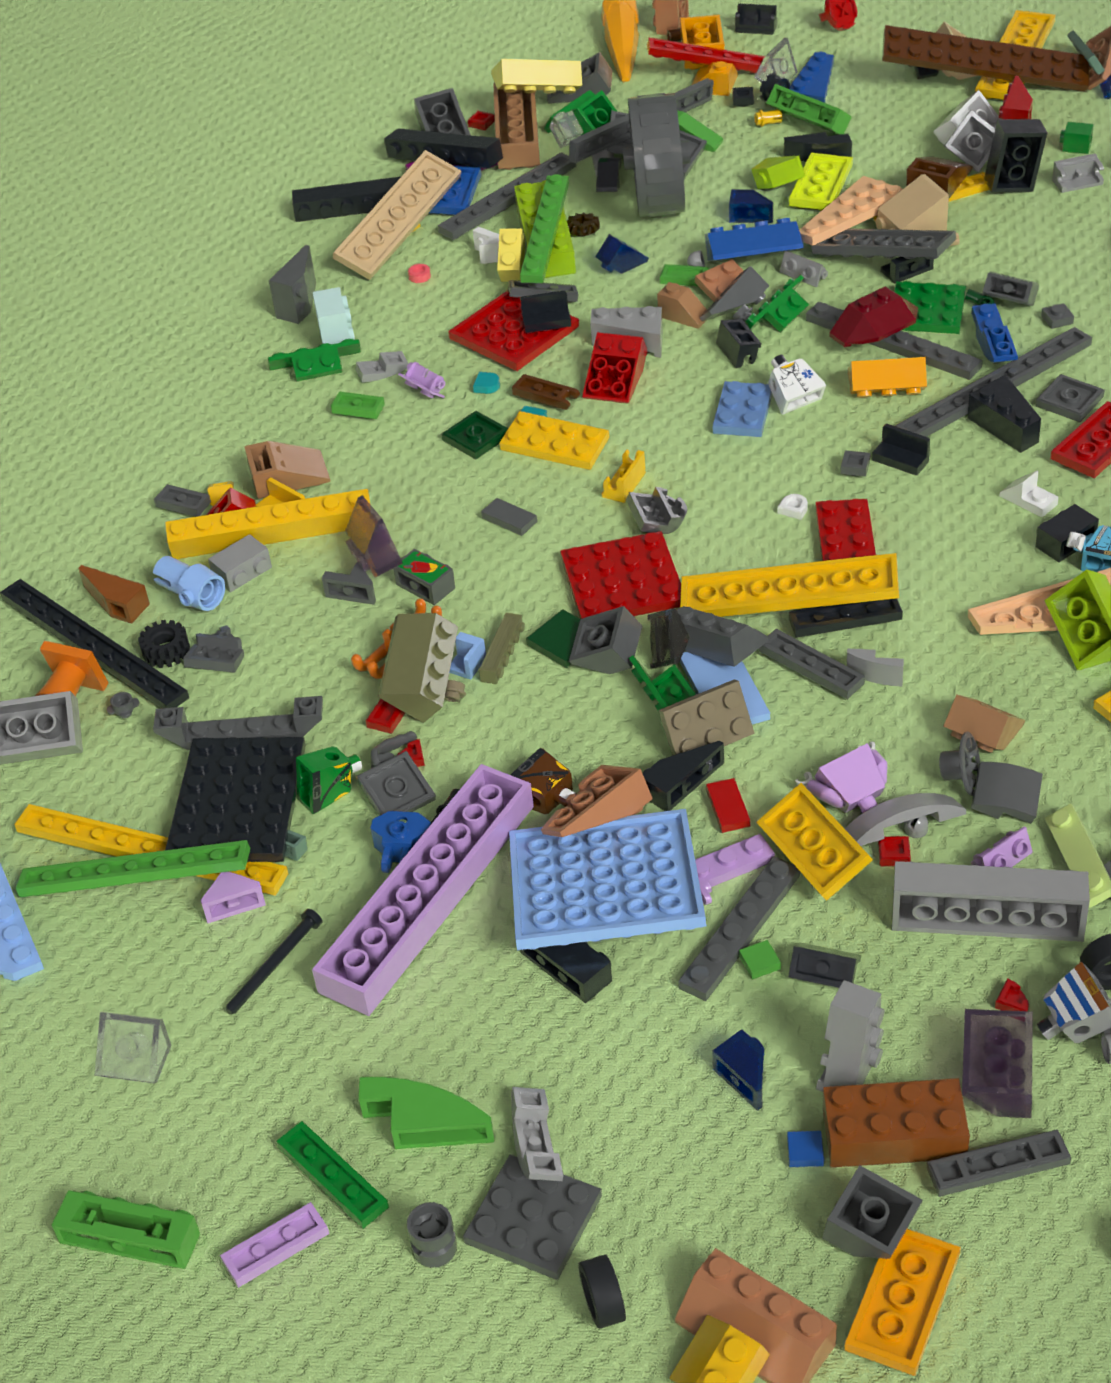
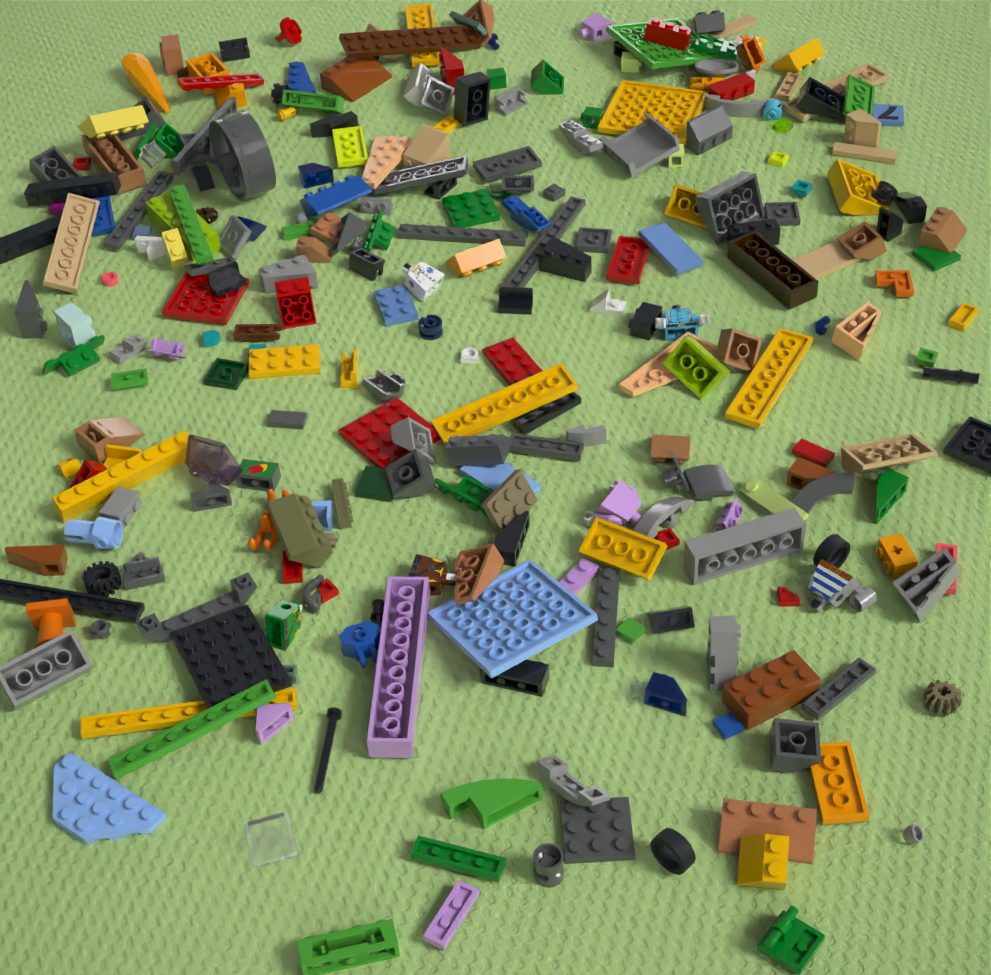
camera: 30 degrees left, 0 degrees up
(182, 500) = (45, 481): dark grey plate -> none
(396, 785) = (333, 612): dark grey tile -> none
(494, 223) = (141, 231): none -> sand blue tile
(593, 260) = (234, 236): none -> light grey tile
(637, 591) = (413, 436): none -> light grey slope
(667, 638) = (449, 461): clear smoke slope -> none
(728, 805) = (551, 548): red tile -> none
(743, 96) = (259, 103): black plate -> none
(766, 452) = (430, 327): none -> dark blue wheel
(777, 171) = (319, 147): lime slope -> none
(778, 61) = (271, 76): clear slope -> none
(855, 463) = (491, 317): dark grey plate -> none
(873, 318) = (448, 224): dark red wedge -> none
(886, 90) = (354, 77): none -> dark orange slope
(943, 172) = (432, 119): reddish brown slope -> none
(998, 1061) = (809, 631): clear purple slope -> none
(1017, 259) = (507, 164): none -> dark grey plate

